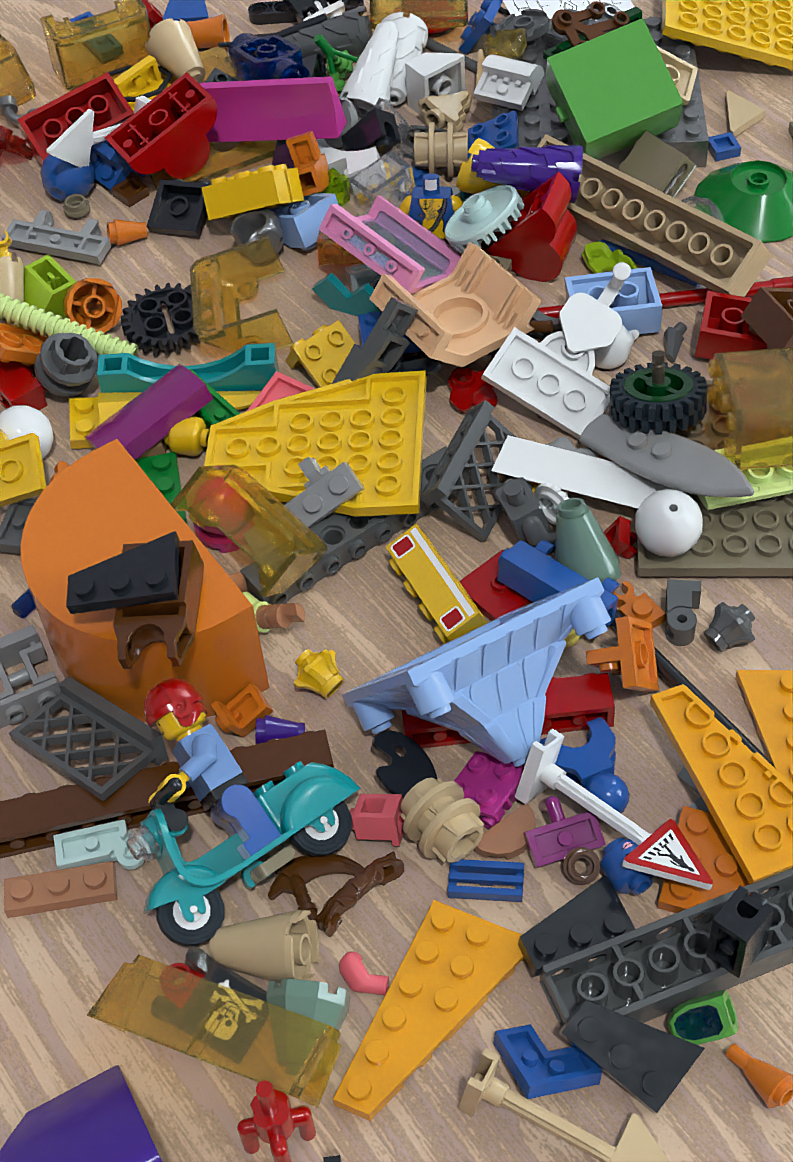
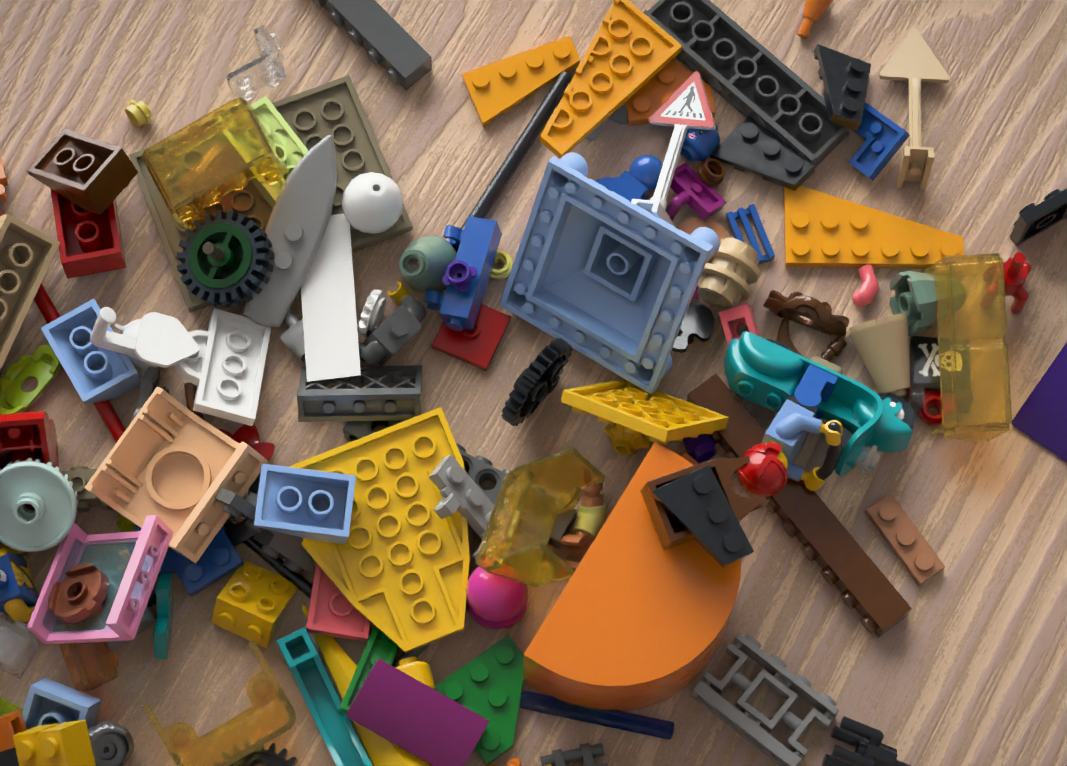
camera: 120 degrees left, 20 degrees up
(95, 846) = (861, 525): light aqua hinge -> none
(107, 722) = (754, 571): dark grey fence -> none
(308, 653) = (639, 412): none -> yellow plate
(370, 367) = (305, 503): none -> light blue slope
(392, 230) = (79, 594): none -> copper plate
(403, 591) = (536, 382): none -> black gear
(435, 584) = (495, 379): yellow brick -> none
(549, 559) = (454, 269): none -> dark purple plate
(621, 537) = (385, 254): red tile -> none
(632, 657) = (515, 195): orange bracket -> none
(639, 607) = (449, 212): orange plate -> none
(673, 340) = (110, 293): dark grey bar -> none
(680, 619) = (442, 181): dark grey leg -> none
(704, 1018) = (794, 53): rock -> none
(730, 626) = (445, 137): dark grey rock -> none
(742, 926) = (740, 29): black brick -> none

